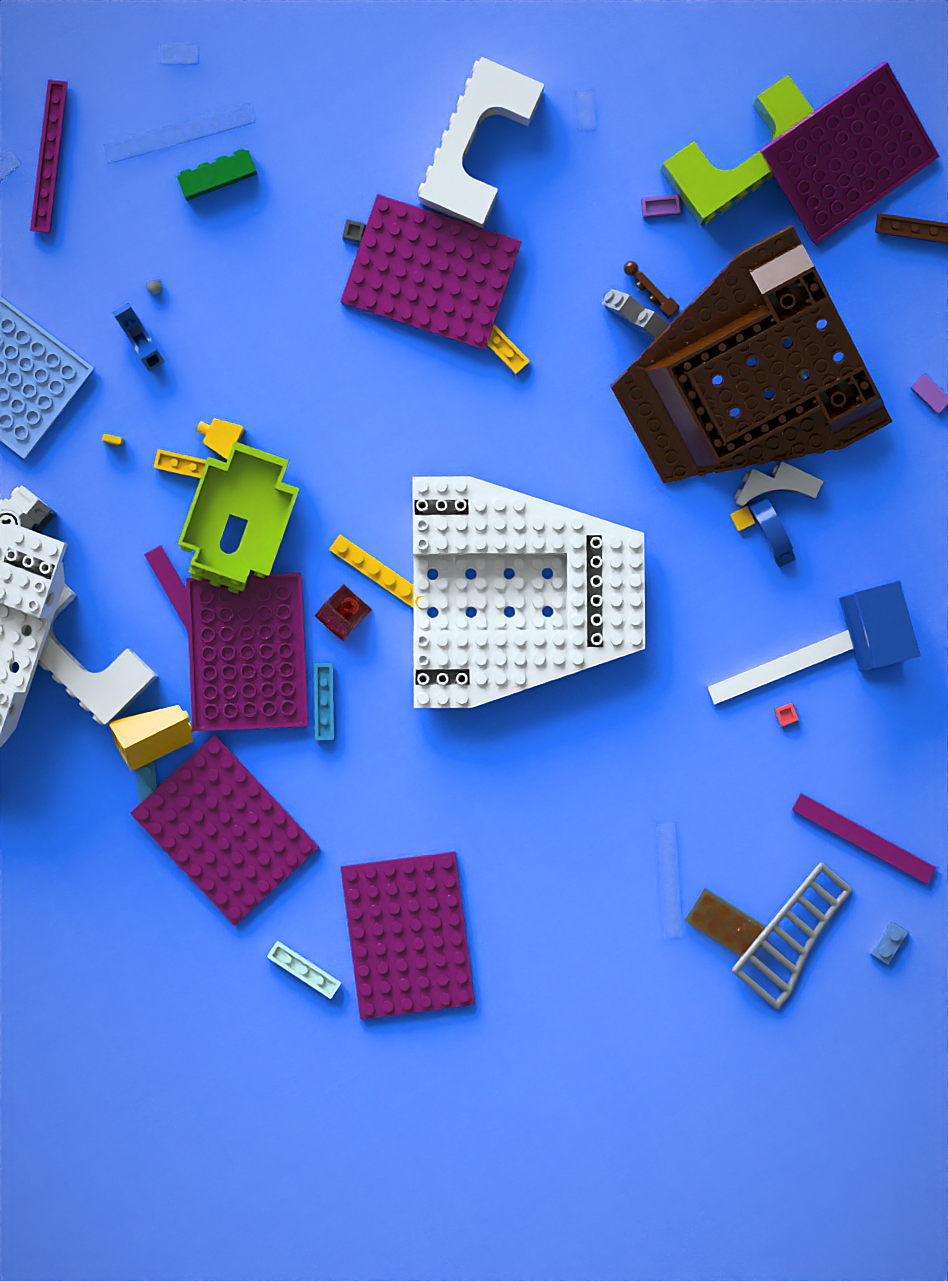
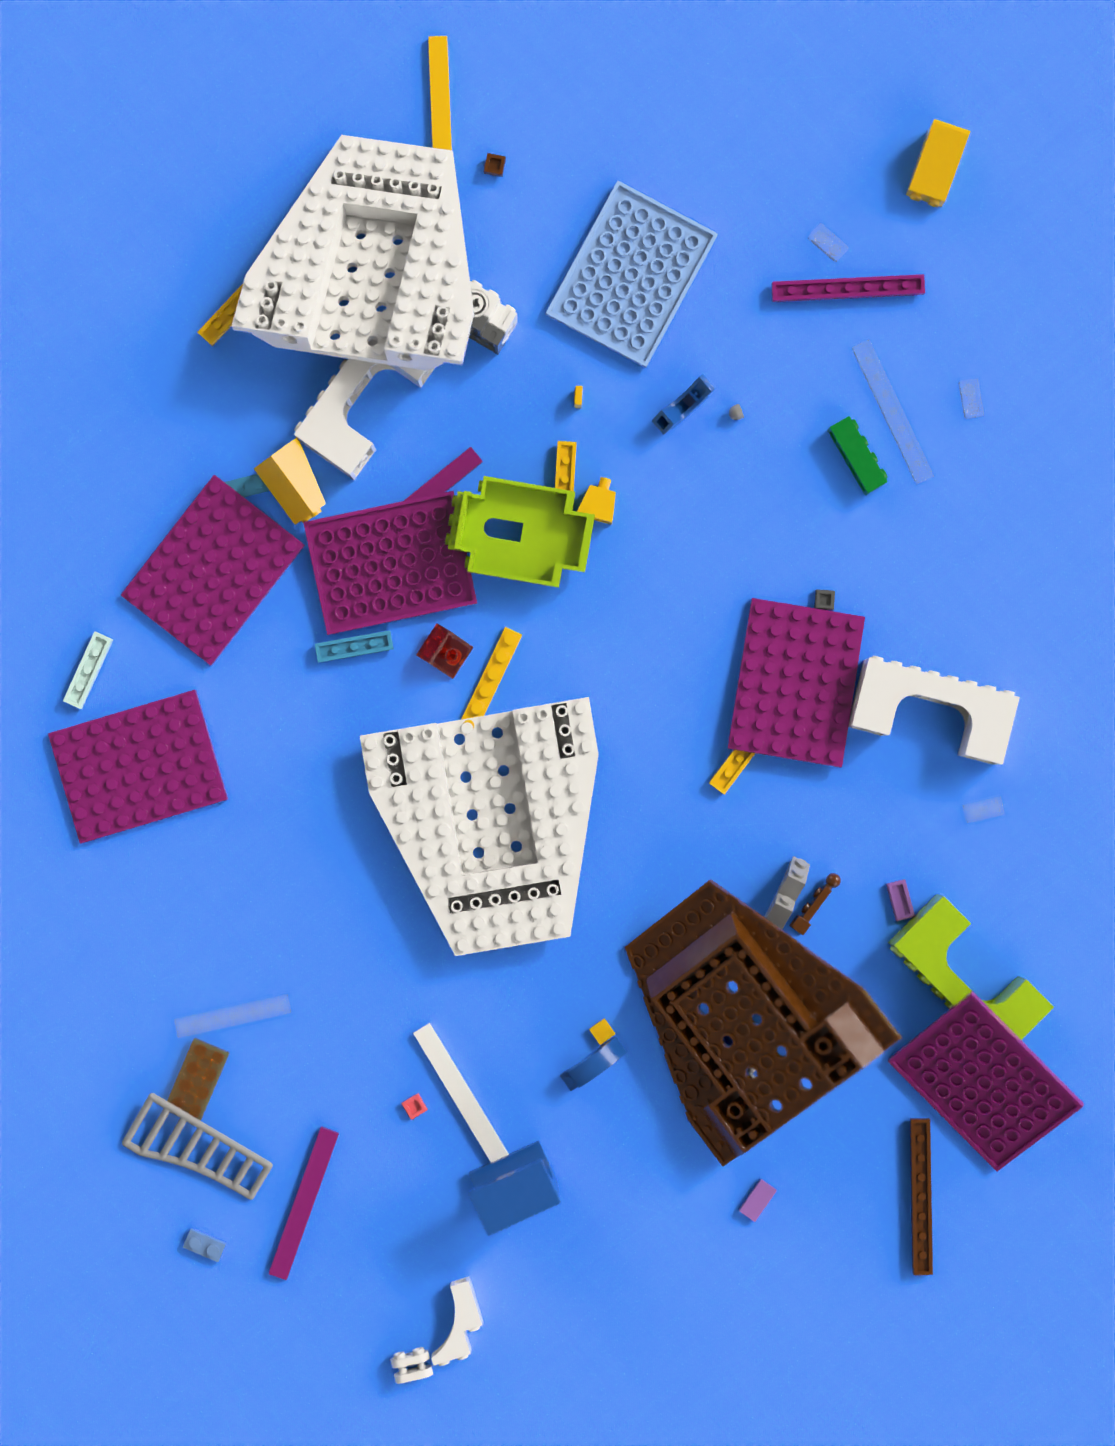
camera: 80 degrees right, 0 degrees up
(785, 479) = (648, 1066): light grey arch -> none

